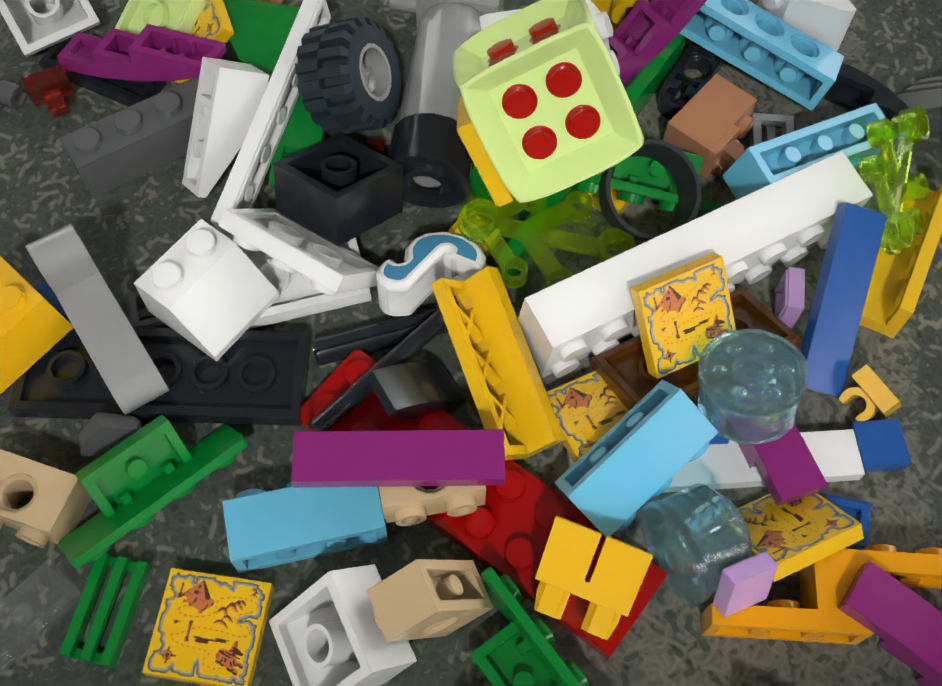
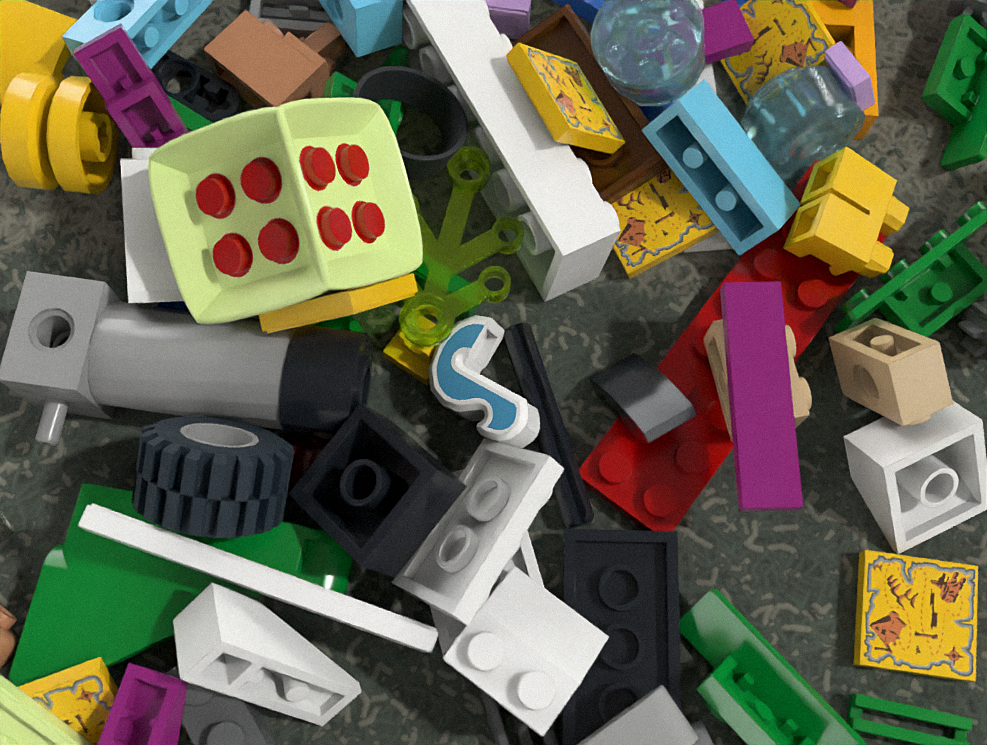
camera: 90 degrees left, 10 degrees up
(300, 524) = (808, 546): medium azure brick -> none
(361, 388) = (614, 432): black bar -> none
(500, 361) = (603, 307): yellow fence -> none

